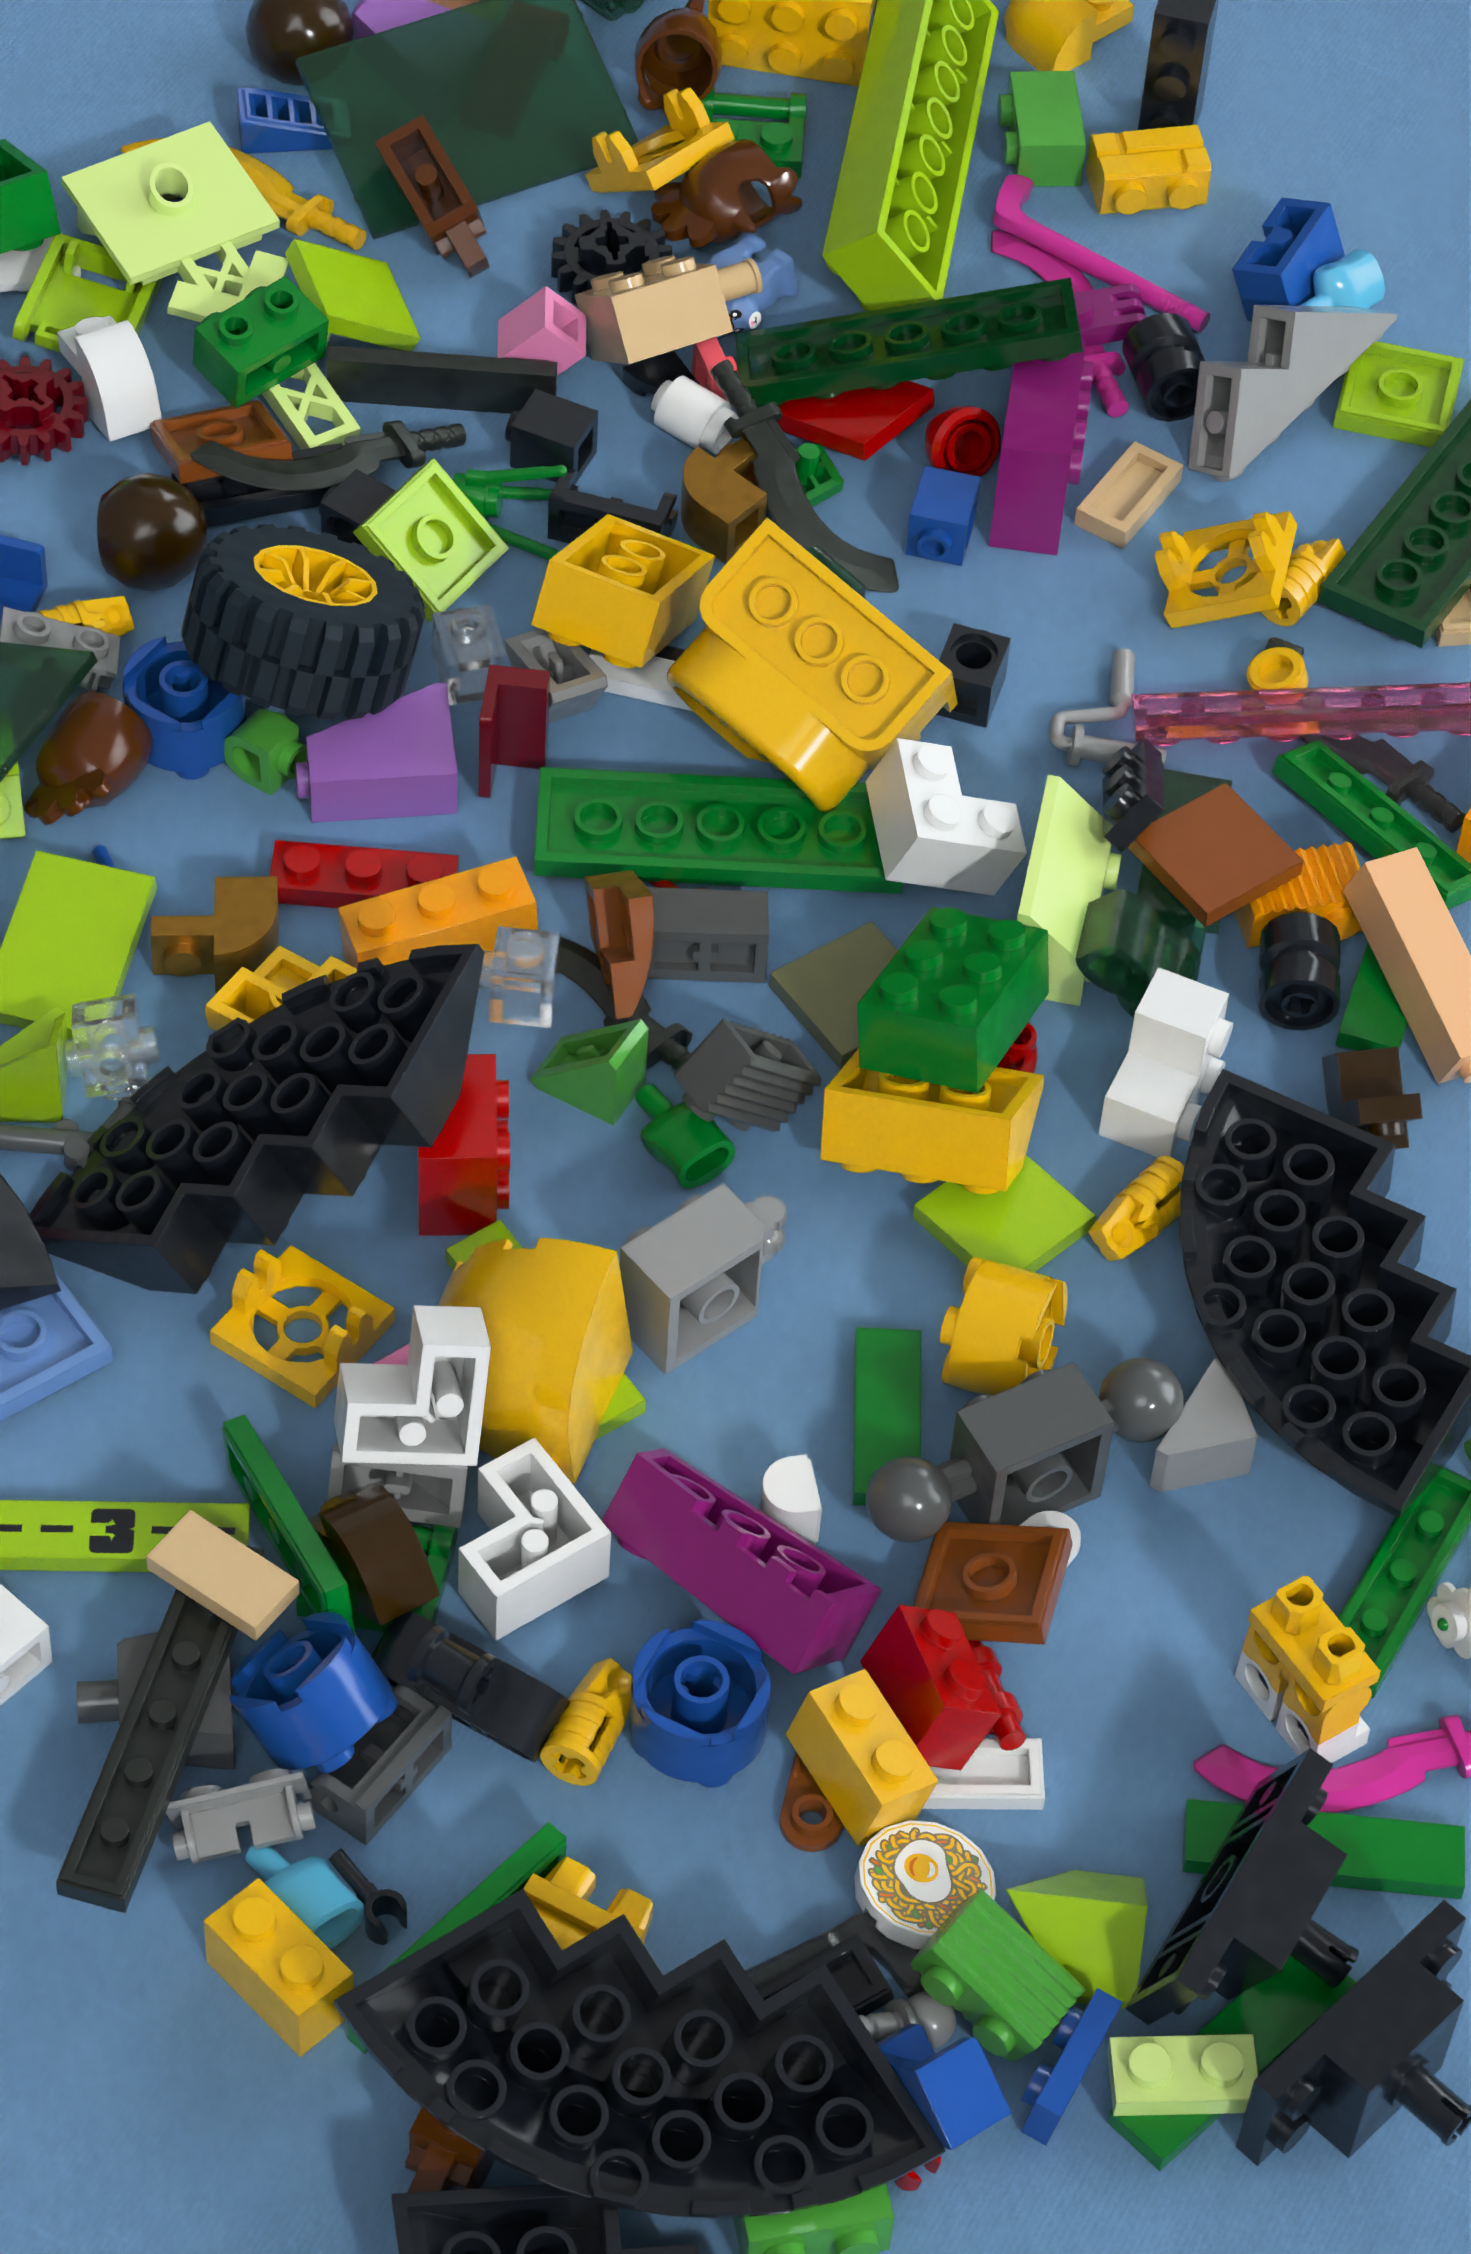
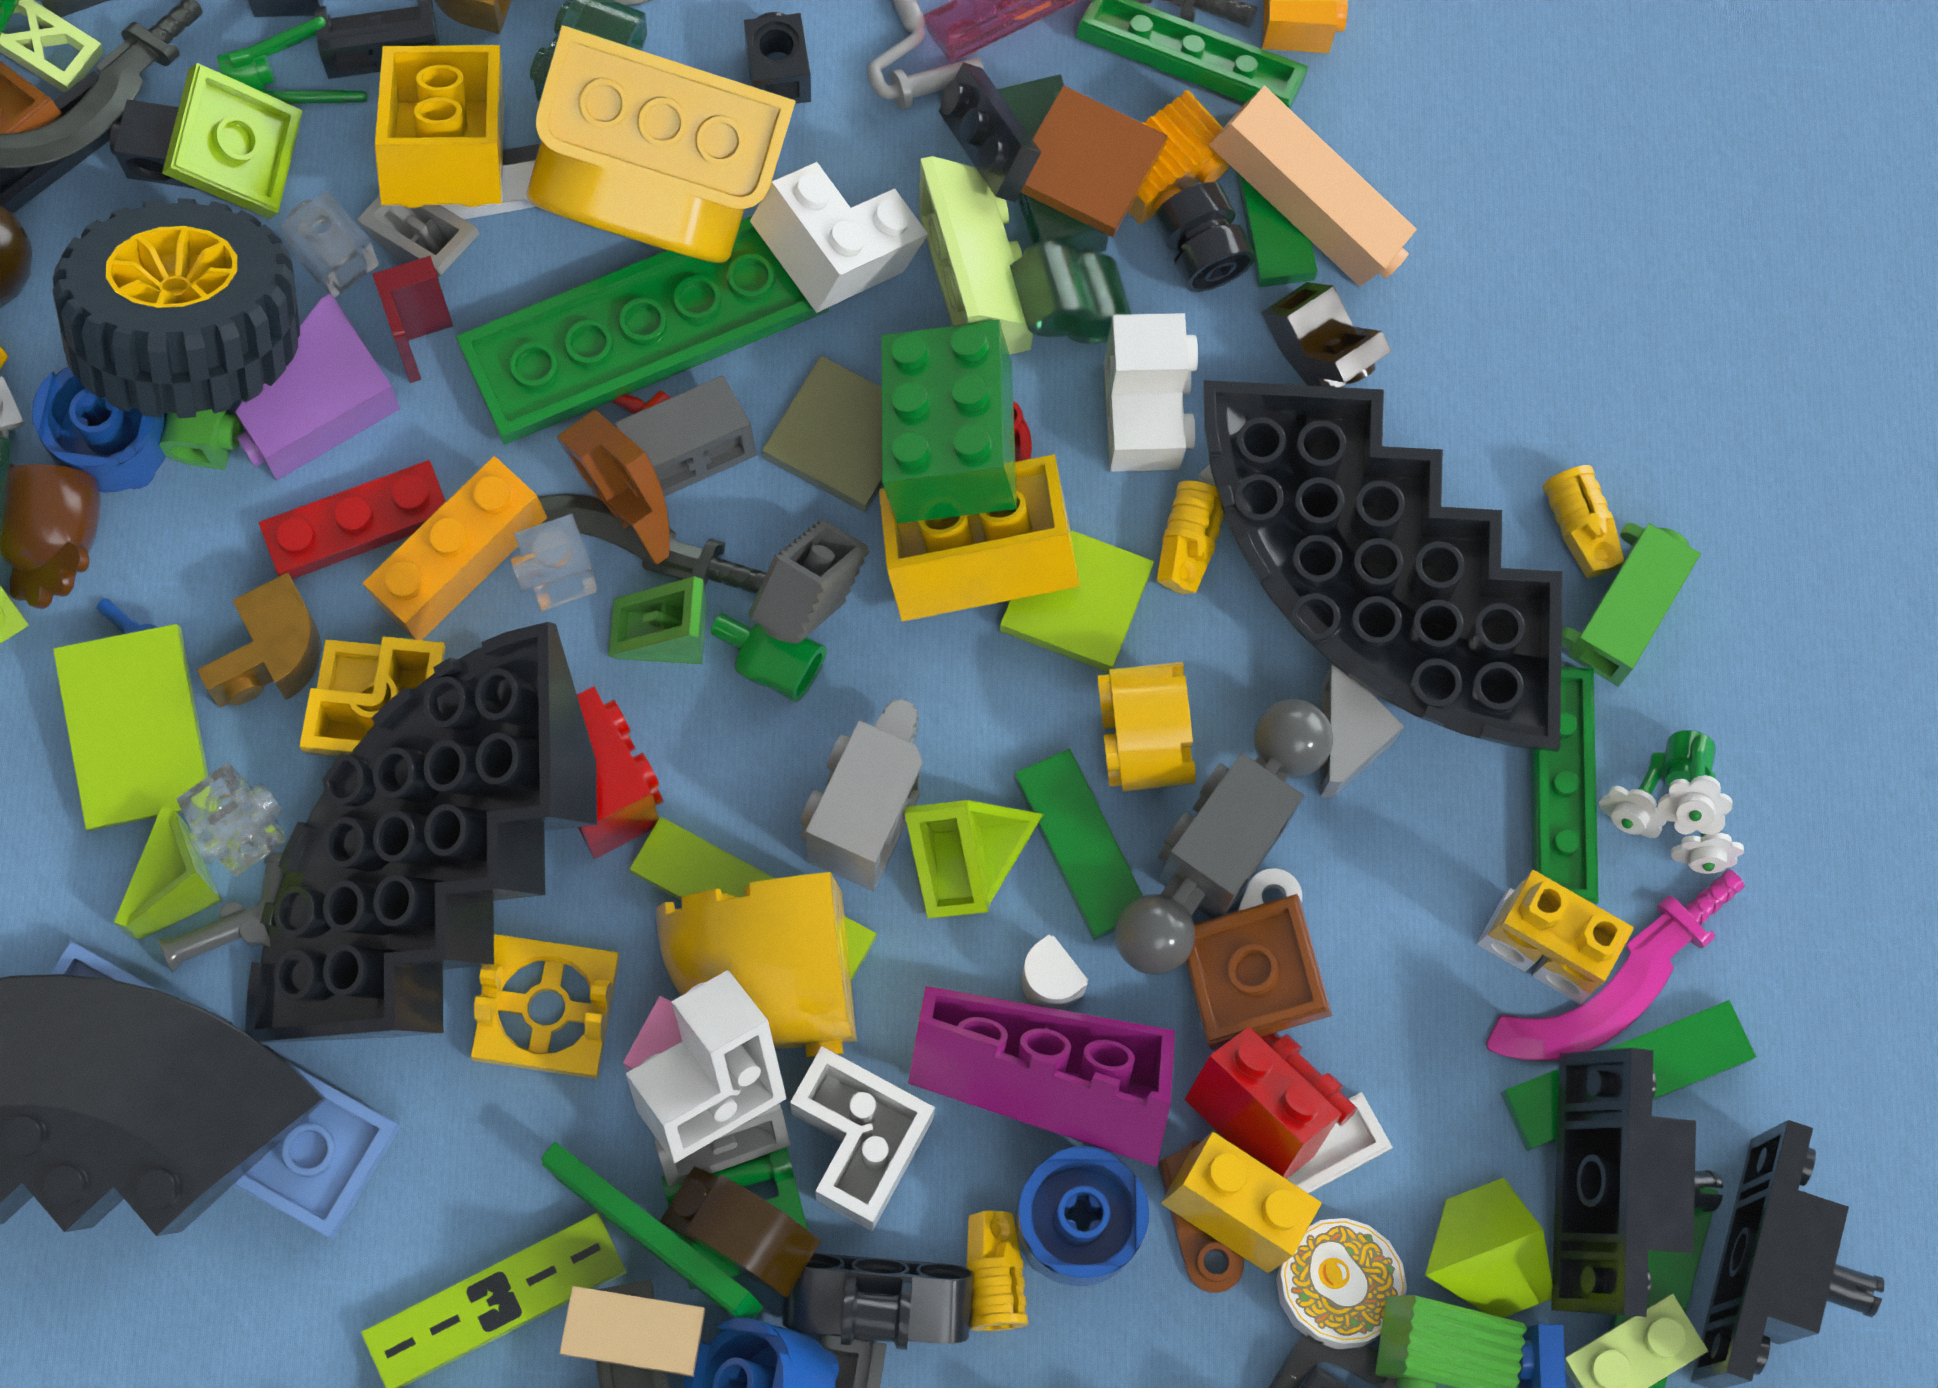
camera: 30 degrees left, 20 degrees up
(769, 1360) = (965, 852): none -> lime slope

